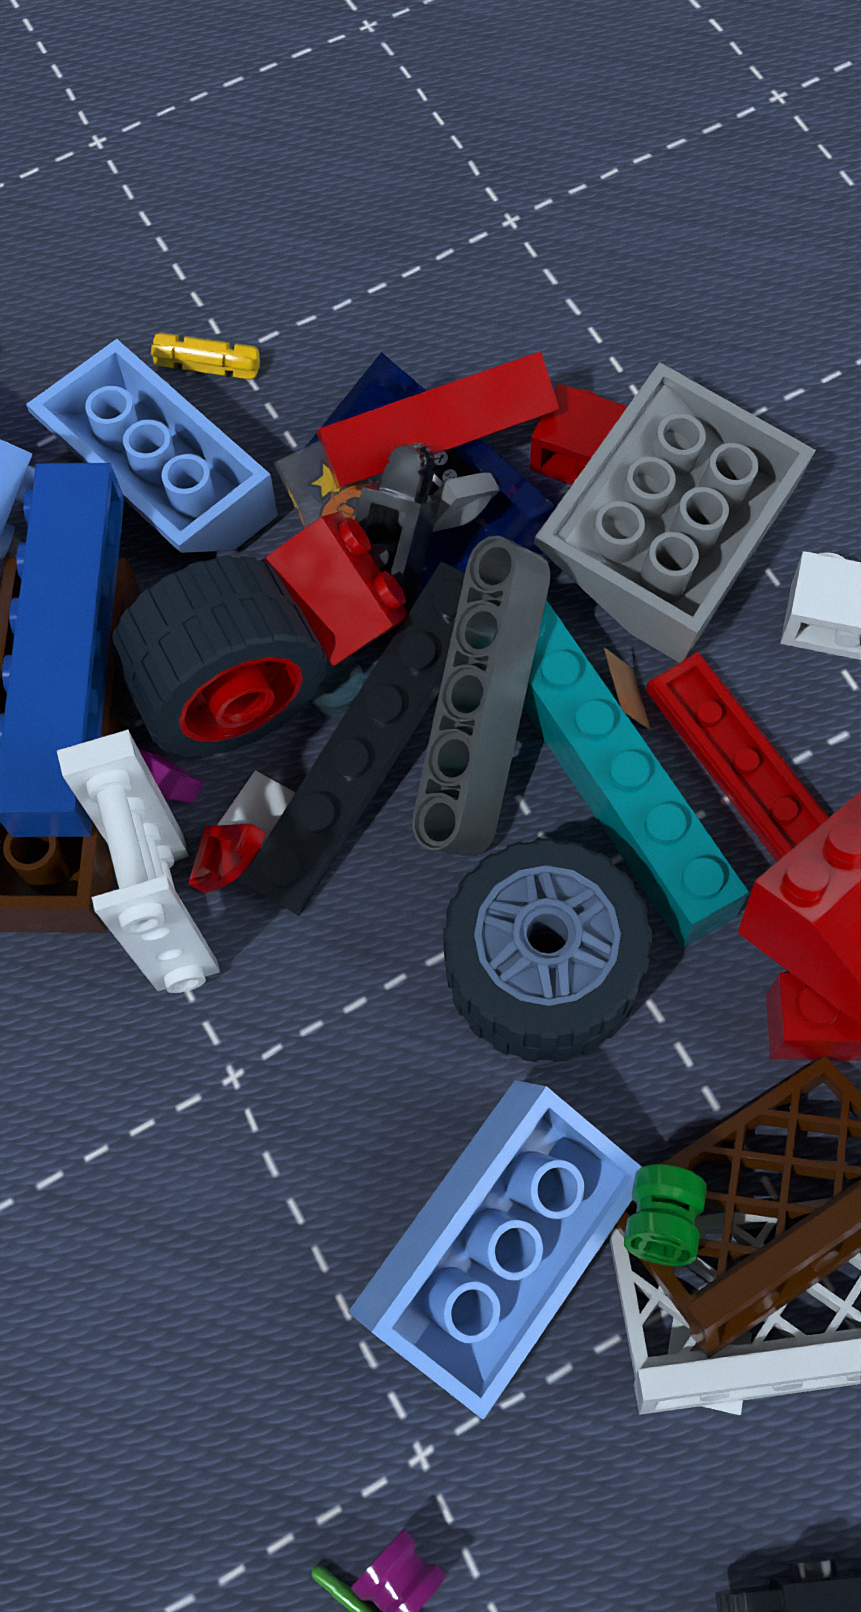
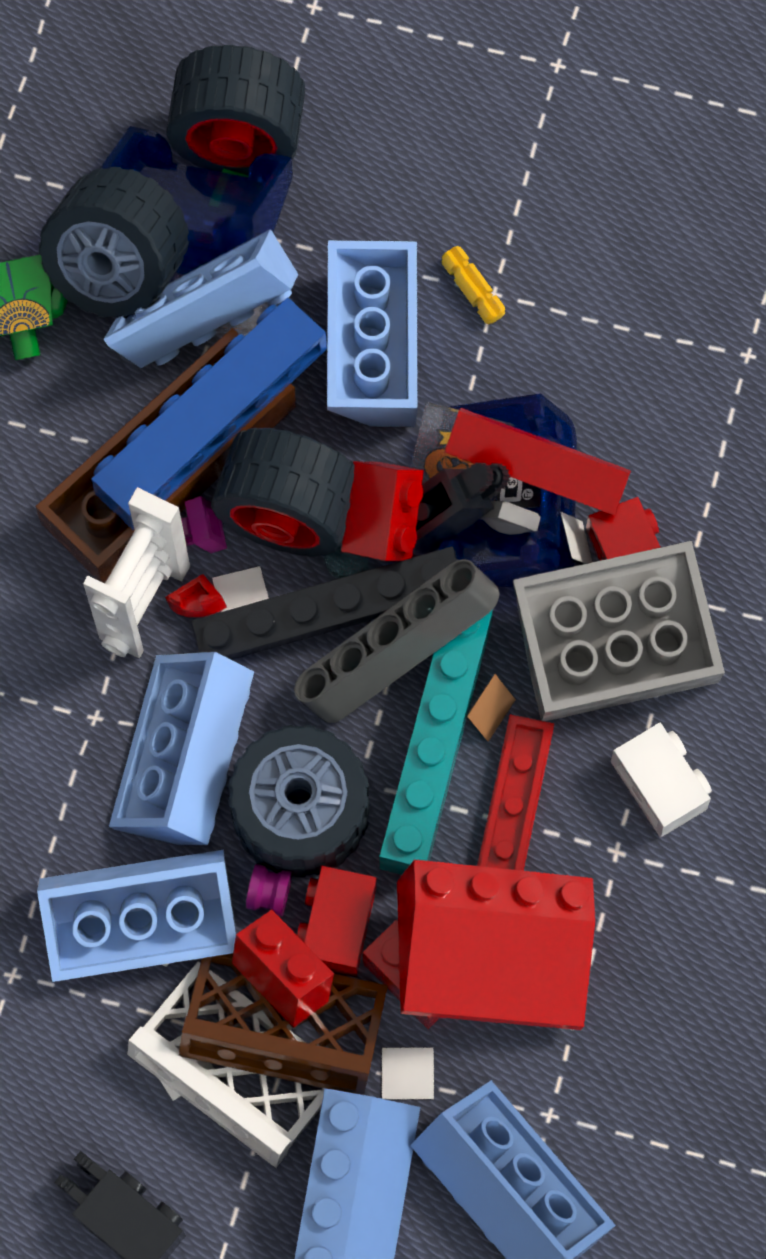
camera: 40 degrees right, 5 degrees up
(363, 1019) = (182, 748): none -> light blue slope
(537, 474) = (576, 539): none -> white sticker
(606, 1075) = (269, 889): none -> magenta wheel
(665, 1215) = (221, 972): green wheel -> none
(709, 1037) = (338, 917): none -> red brick
(727, 1137) = (282, 968): none -> red brick

